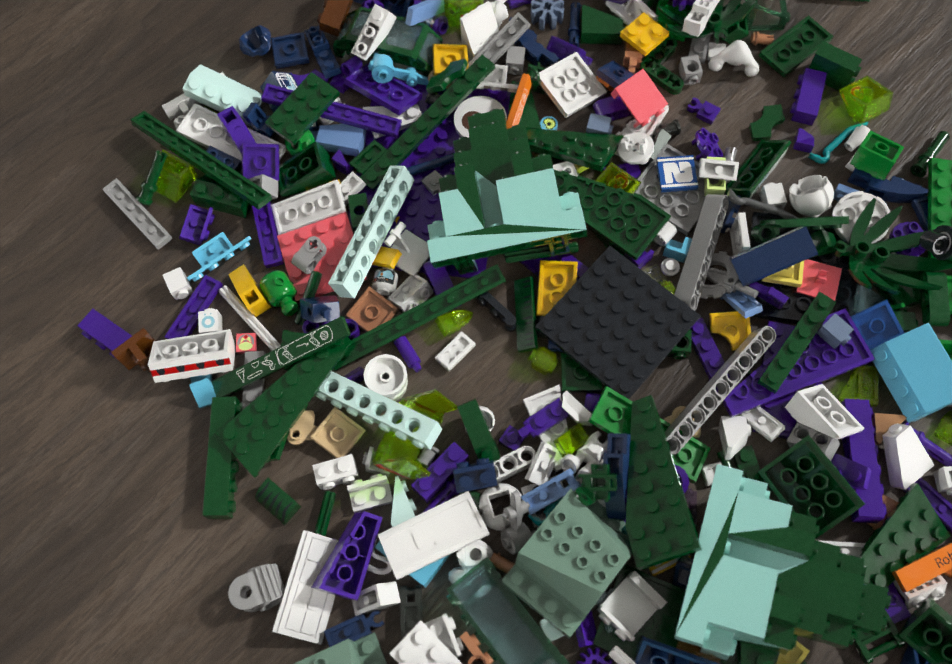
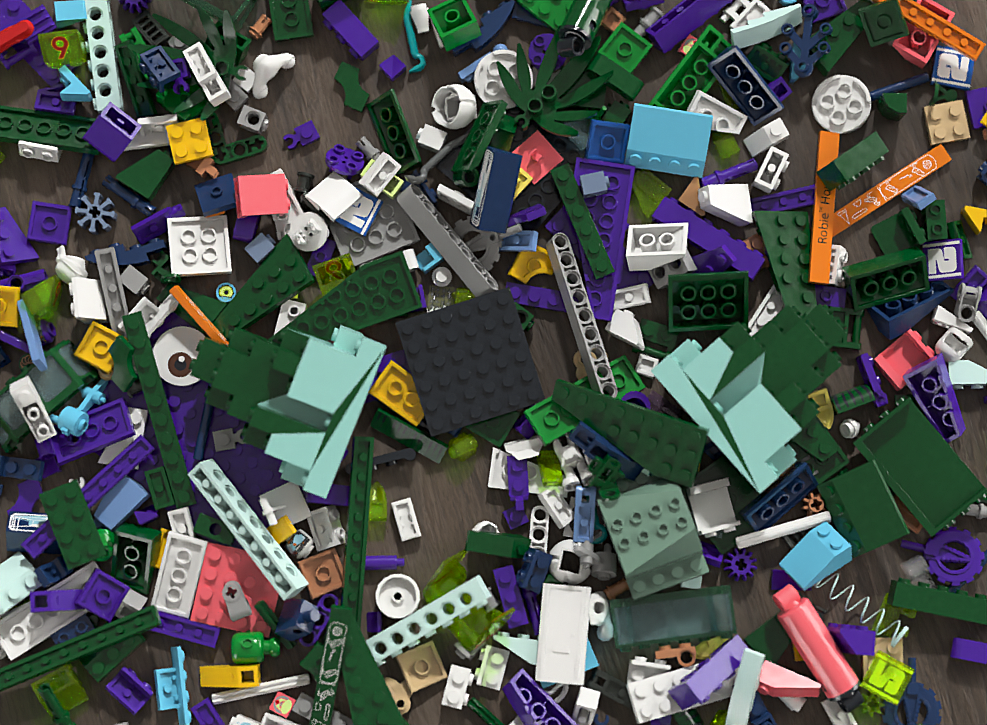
camera: 65 degrees left, 15 degrees up
(676, 149) = (333, 196): none -> white slope

